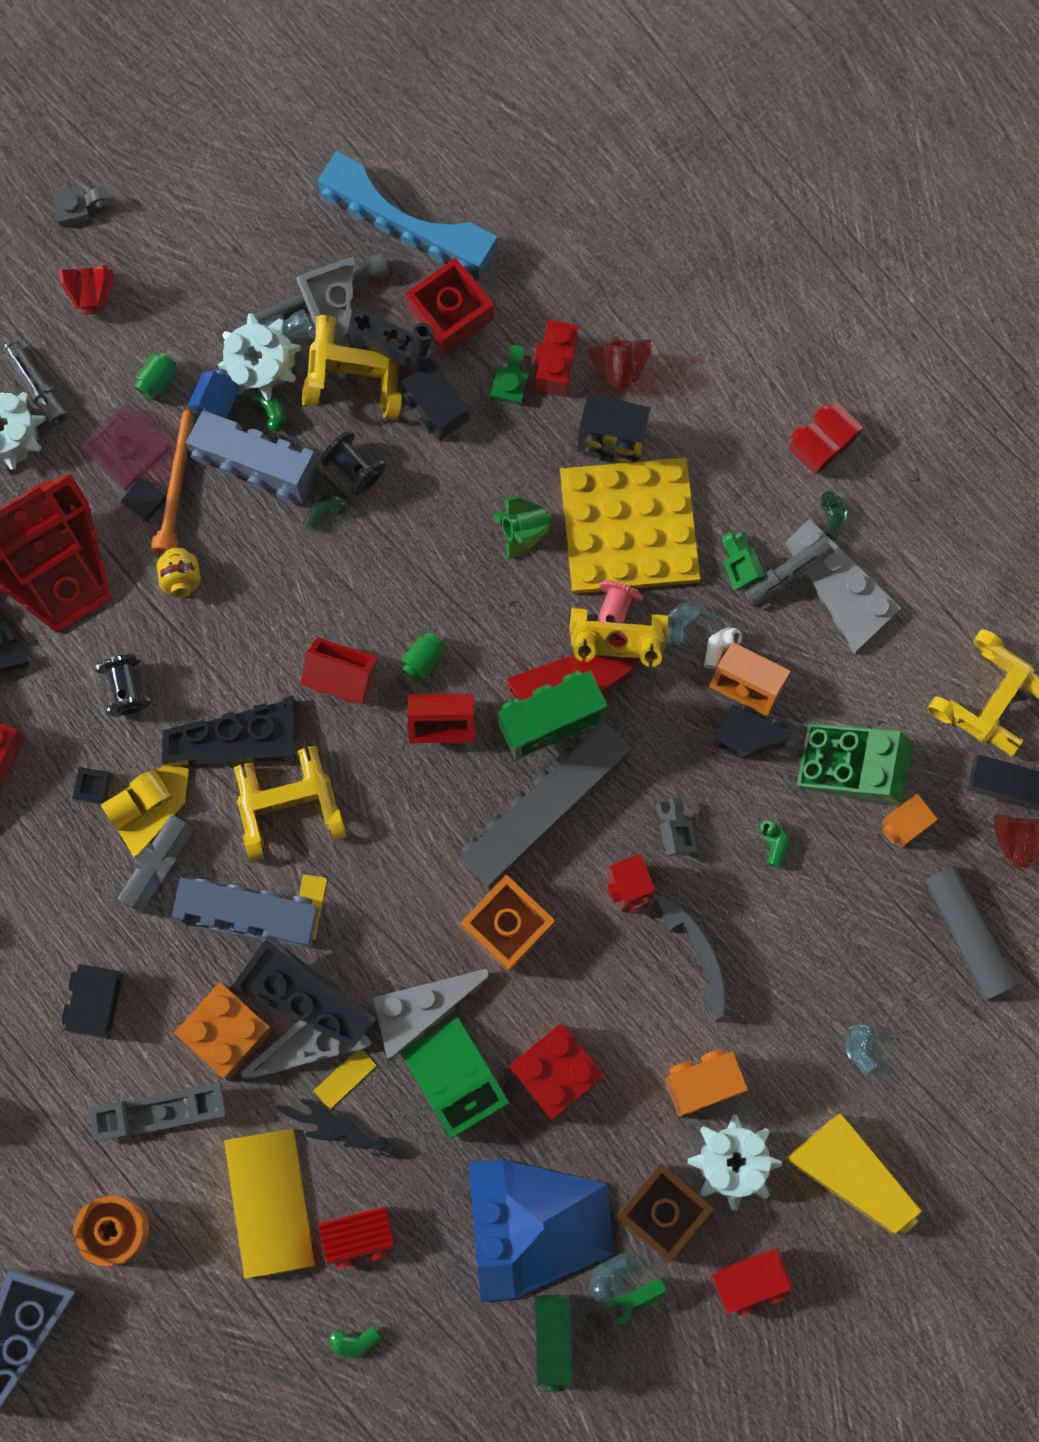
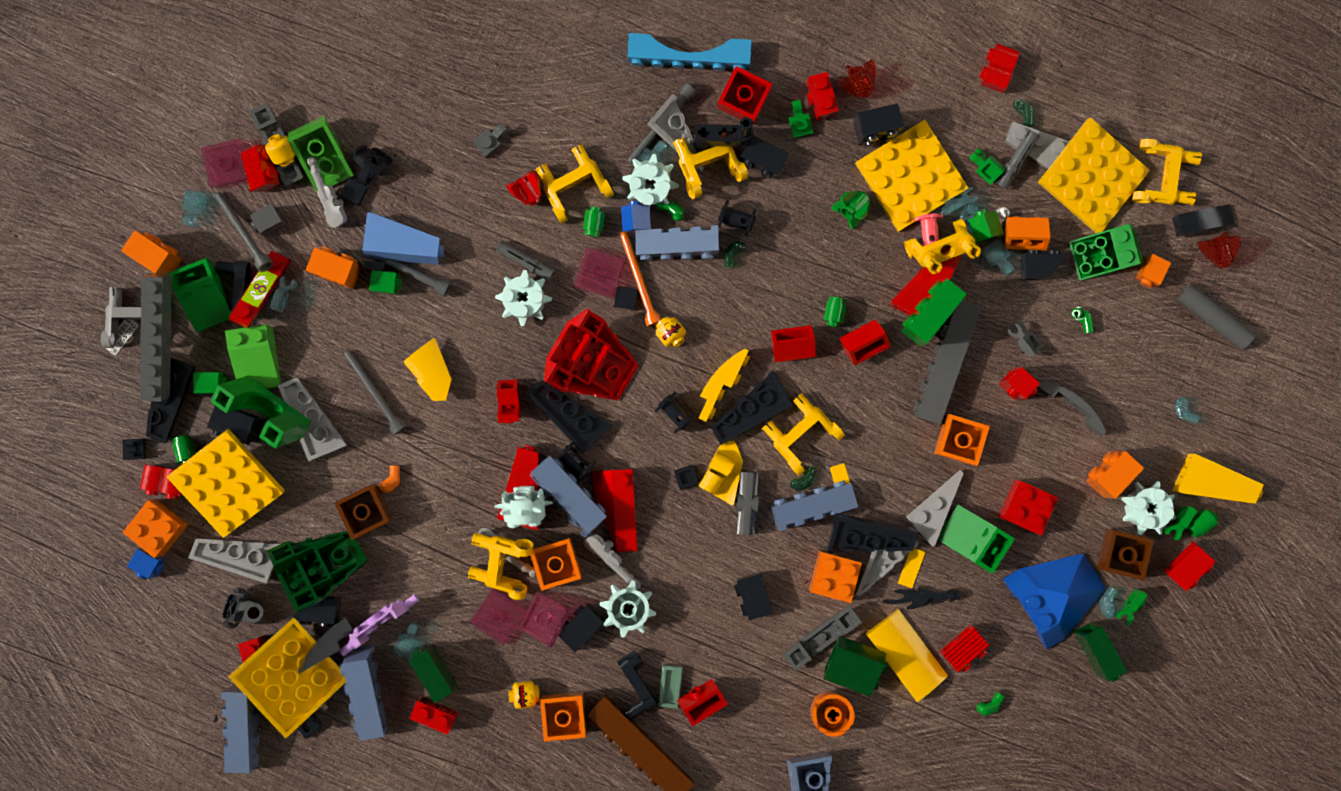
camera: 20 degrees left, 10 degrees up
(179, 304) = (587, 168): none -> yellow connector
(181, 1176) = (855, 666): none -> dark green brick
(222, 668) = (725, 375): none -> yellow slope
(255, 875) = (805, 481): none -> clear green arm
(668, 592) = (954, 204): none -> clear light blue plate
(695, 692) = (997, 254): none -> clear light blue plate
(696, 641) = (985, 225): none -> green brick
(779, 1203) = (1183, 518): none -> green plate
(804, 1226) = (1202, 523): none -> green brick
(886, 647) = (1093, 176): none -> yellow plate

